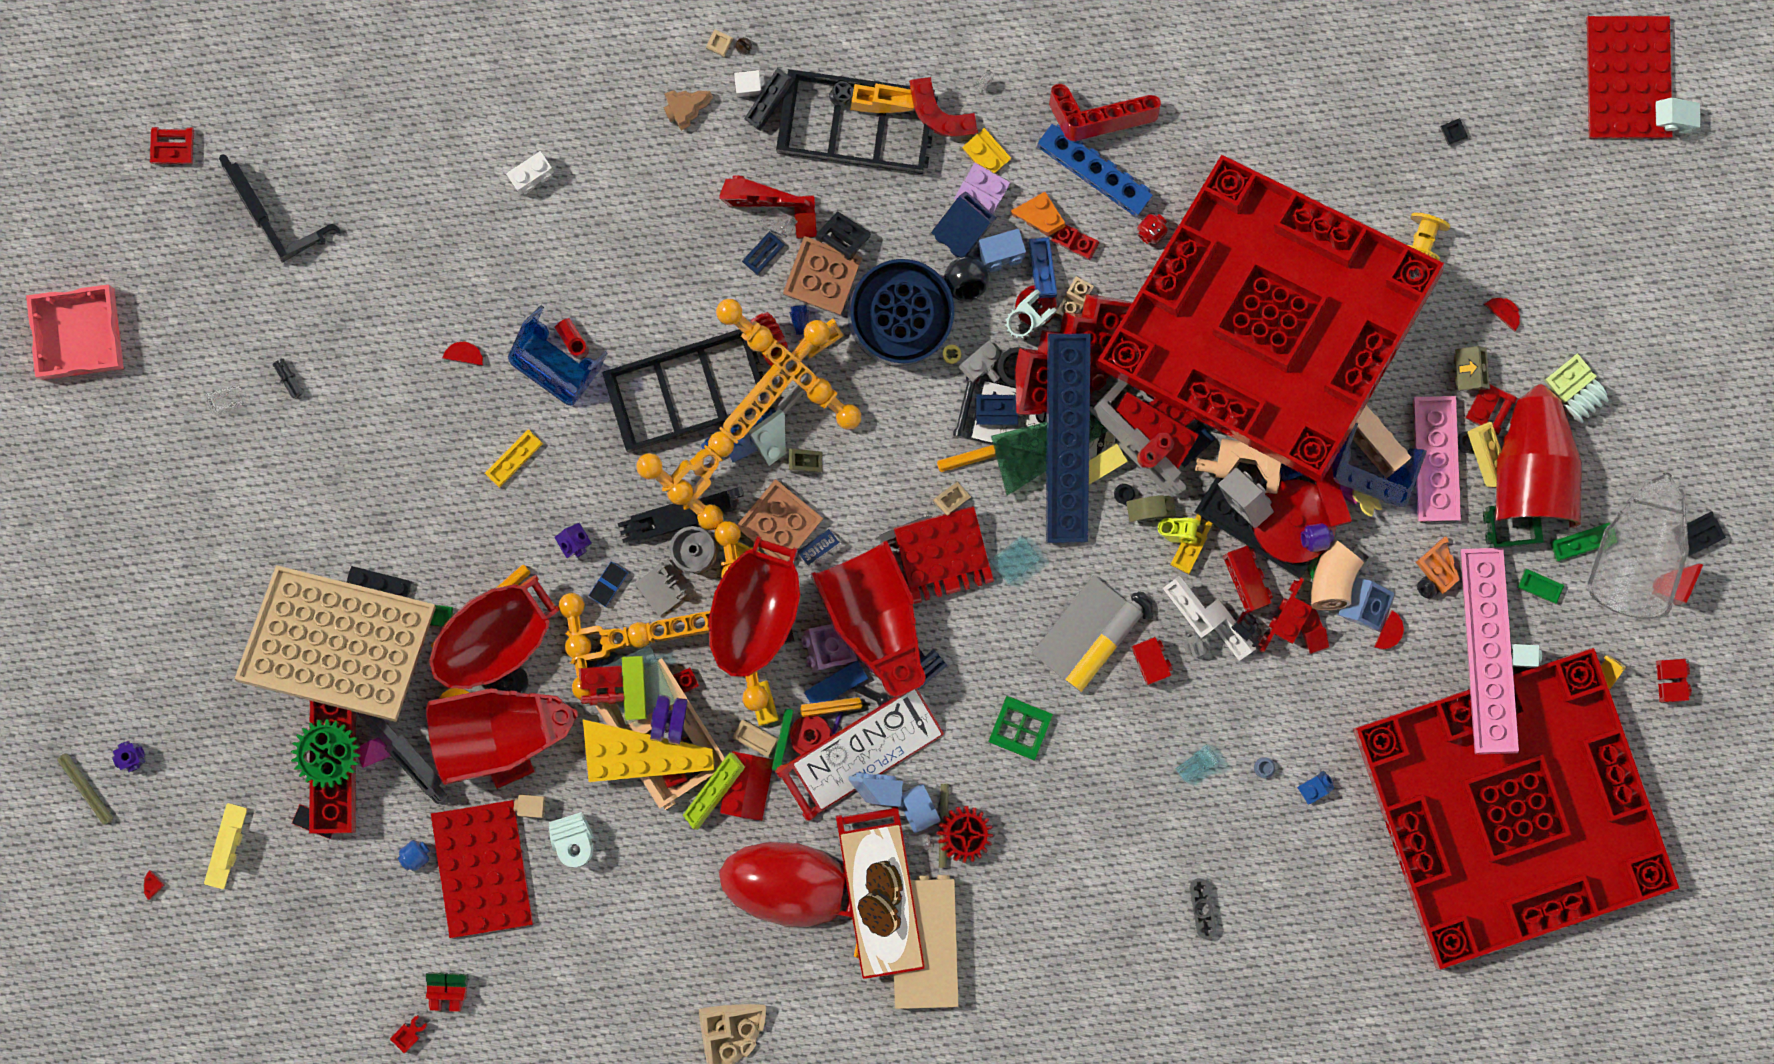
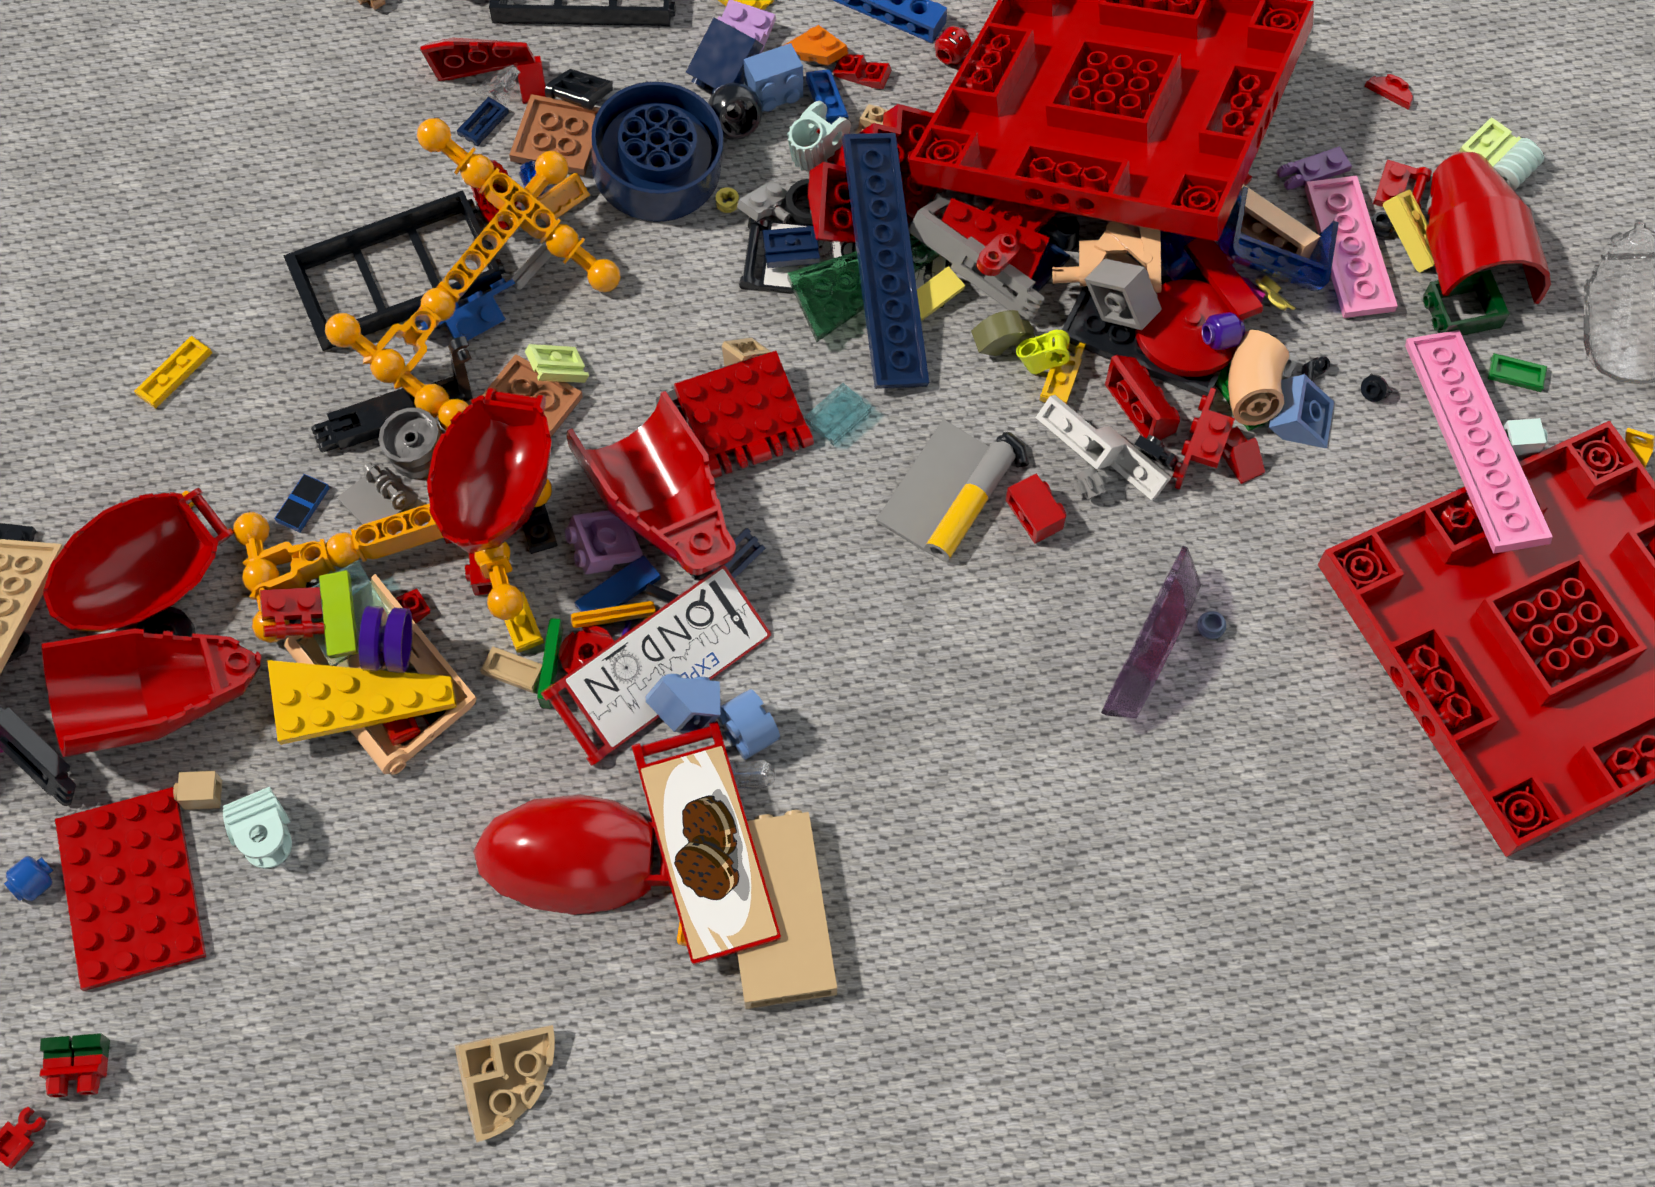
camera: 10 degrees left, 20 degrees down
(464, 352) = (107, 262): red tile -> none
(513, 775) = (172, 749): red plate -> none
(530, 173) = (190, 64): white brick -> none
(550, 365) = (203, 259): clear blue windscreen -> none
(571, 338) = (247, 231): red piece -> none
(573, 541) = (251, 451): dark purple brick -> none
(713, 791) = (456, 734): lime tile -> none
(749, 791) = (503, 728): red slope -> none
(770, 437) = (505, 306): light aqua wing -> none
(805, 461) = (551, 329): olive slope -> none
(806, 493) = (556, 363): none -> yellowish green plate
(818, 547) = (585, 426): slope -> none
(944, 800) = (785, 752): olive bar -> none
(965, 824) = (837, 749): red gear -> none
(966, 458) = (760, 309): light orange axle -> none
(1026, 710) = (867, 637): green piece -> none
(1124, 493) = (964, 325): black plate -> none
(1199, 925) = (1164, 794): dark grey beam -> none
(1200, 761) = (1122, 627): clear light blue piece -> none
(1220, 780) = (1155, 639): none -> clear purple brick
(1316, 787) = (1286, 640): blue bracket -> none
(1382, 565) = (1315, 367): none -> black arm
(1391, 632) = (1340, 445): red tile -> none
(1426, 380) = (1315, 168): none -> medium lavender hinge
(1439, 566) = (1381, 359): orange wing -> none
(1471, 369) = (1369, 144): olive brick -> none
(1578, 543) = (1552, 319): green tile -> none

